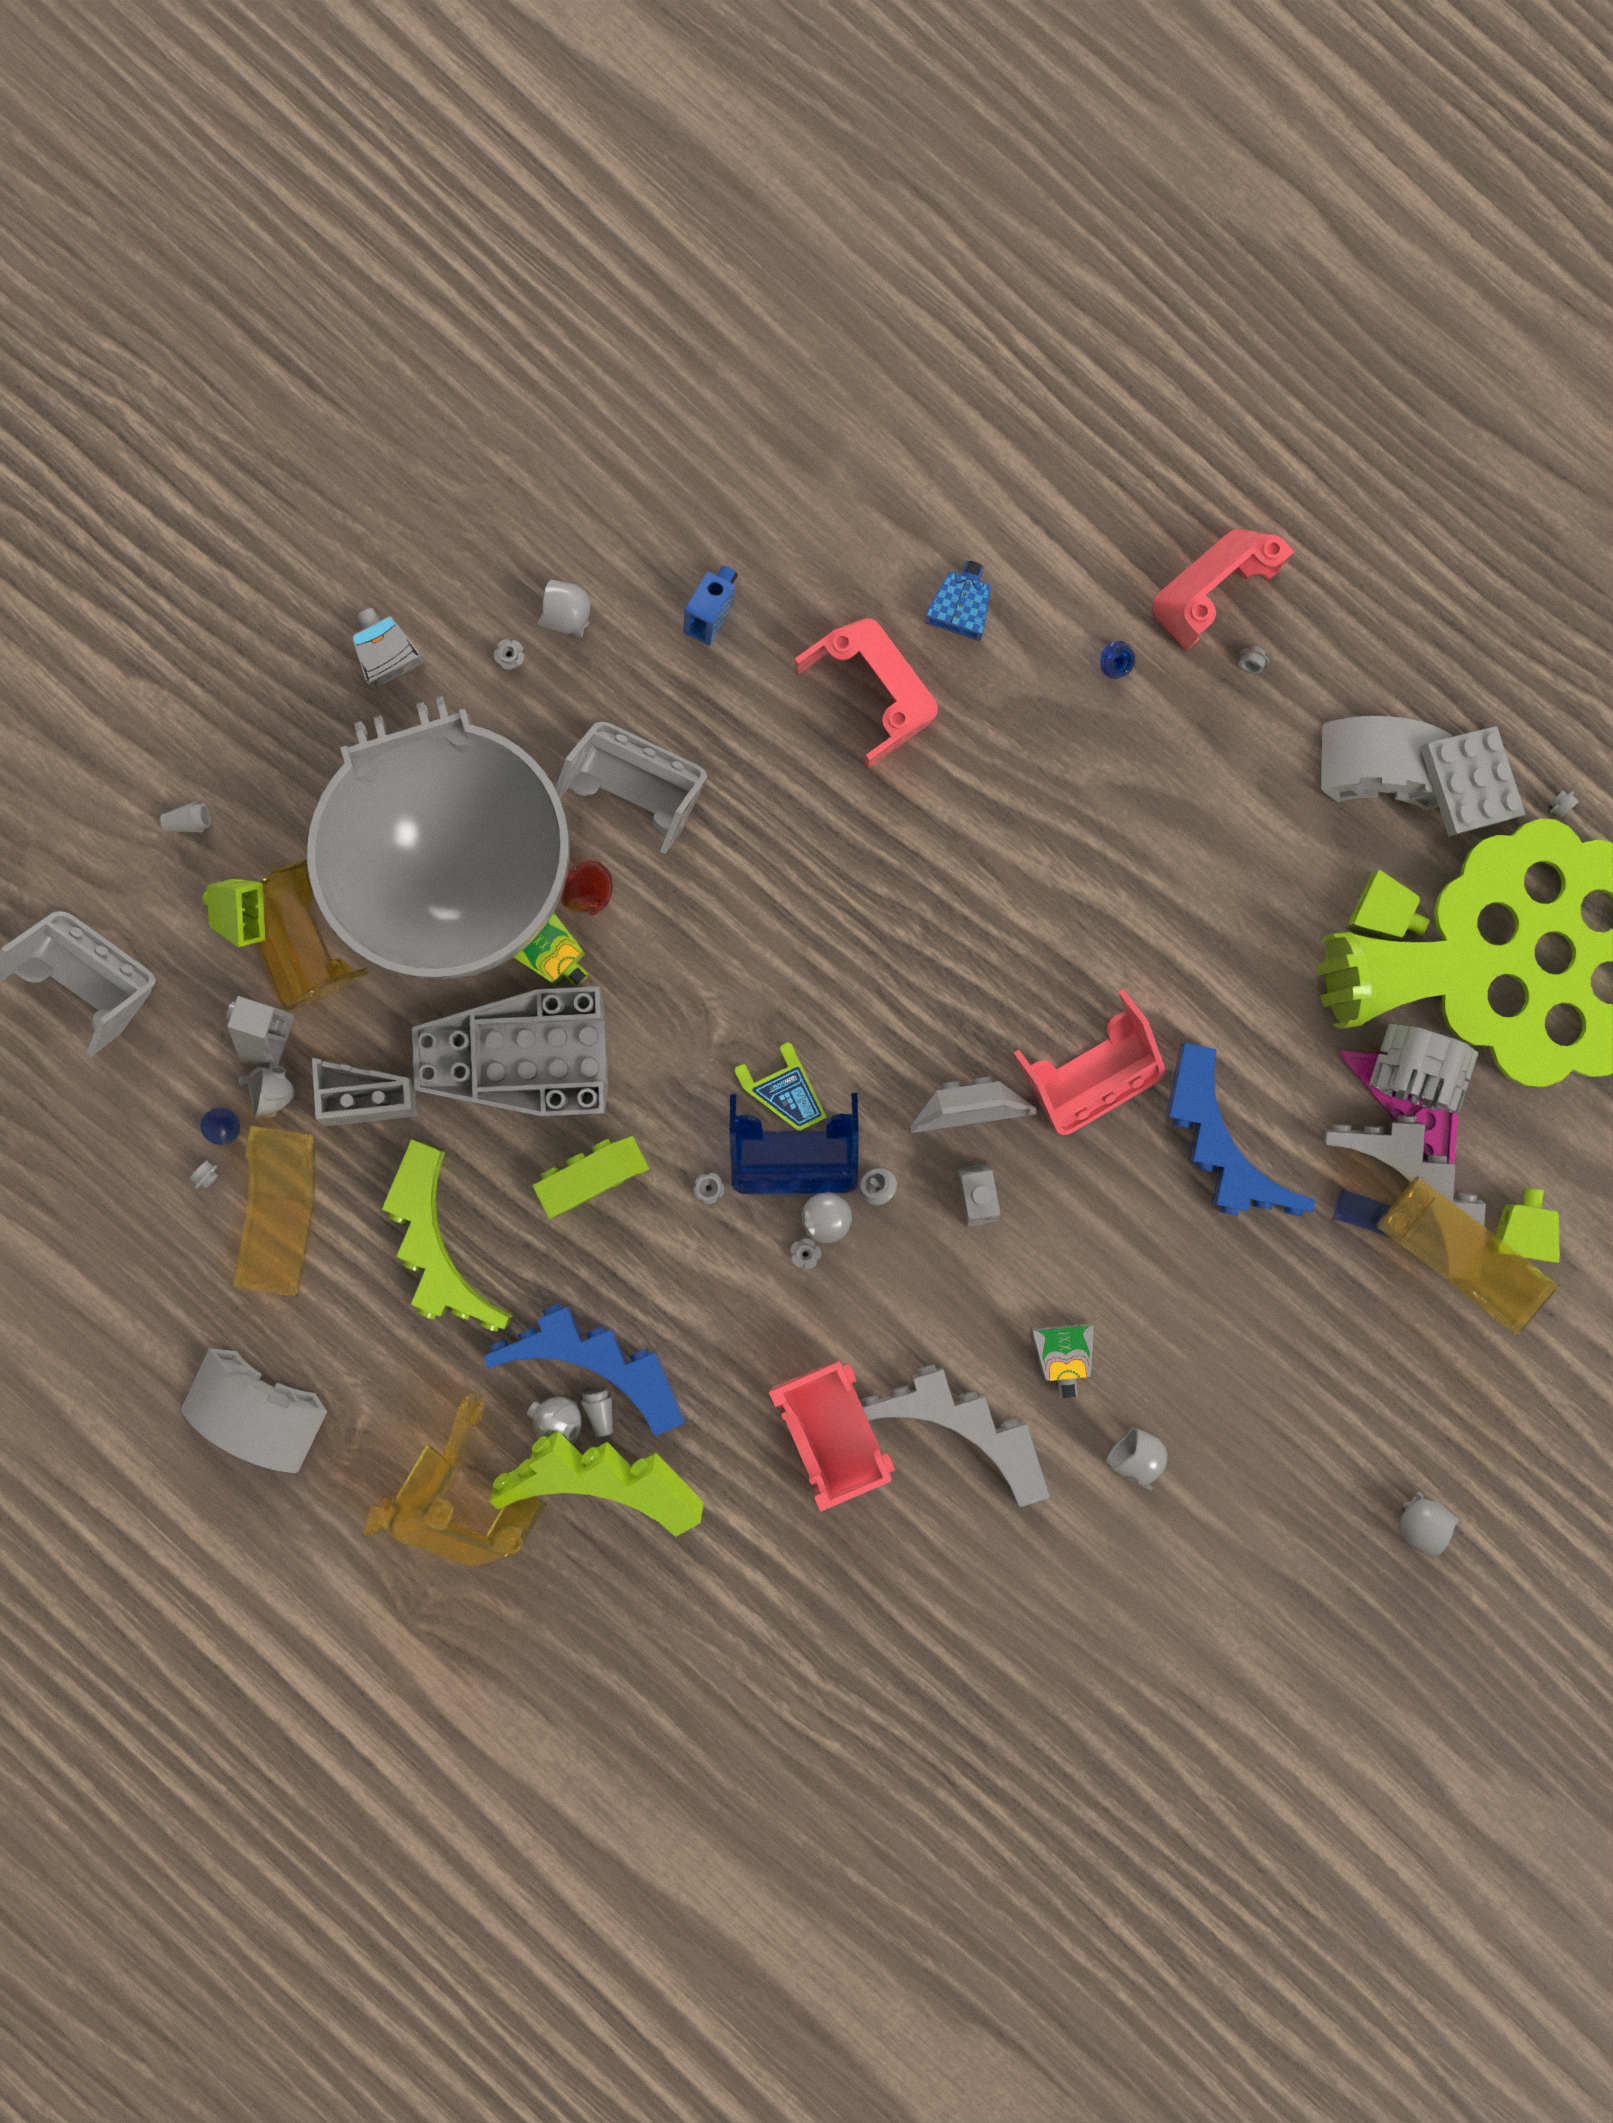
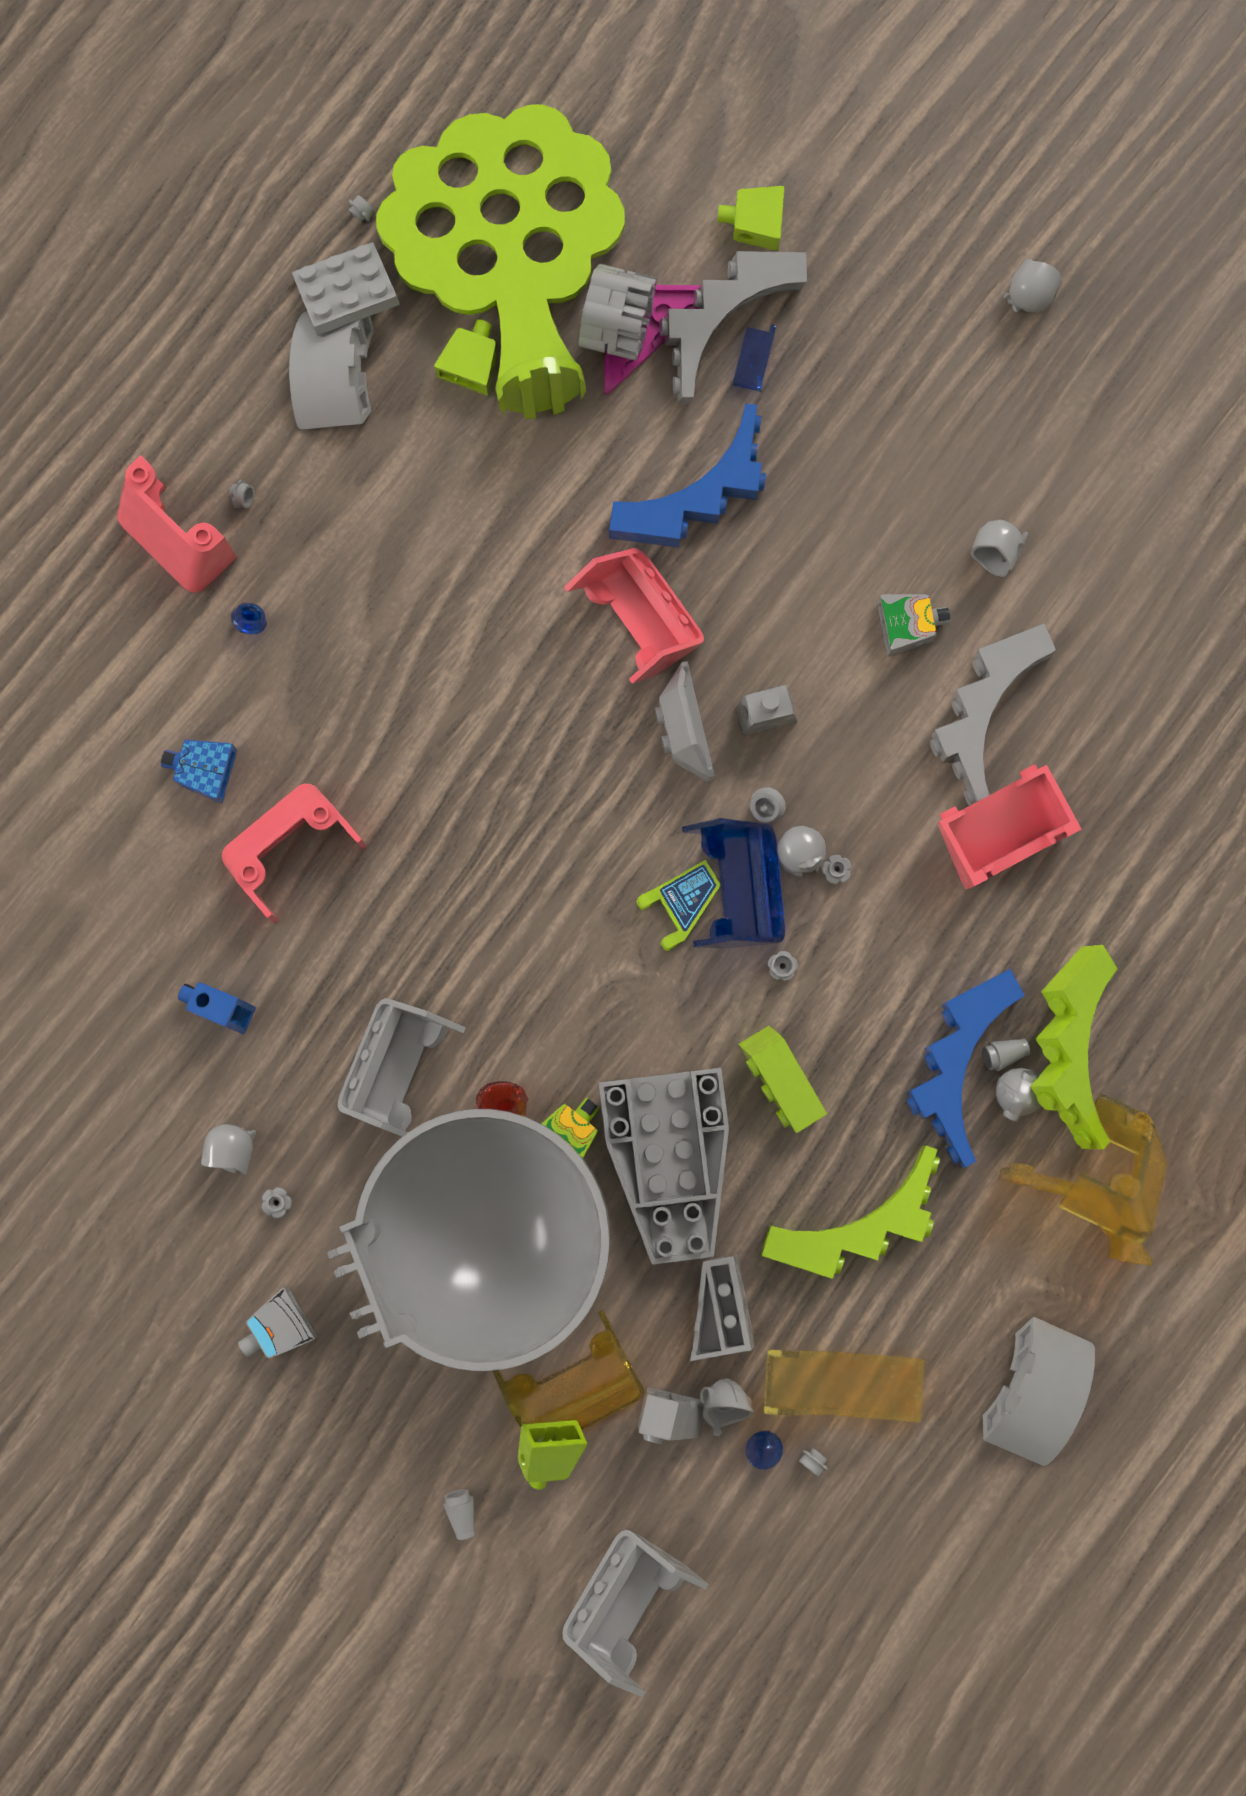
camera: 95 degrees left, 5 degrees down
(1468, 1255) = (787, 260): clear yellow windscreen -> none

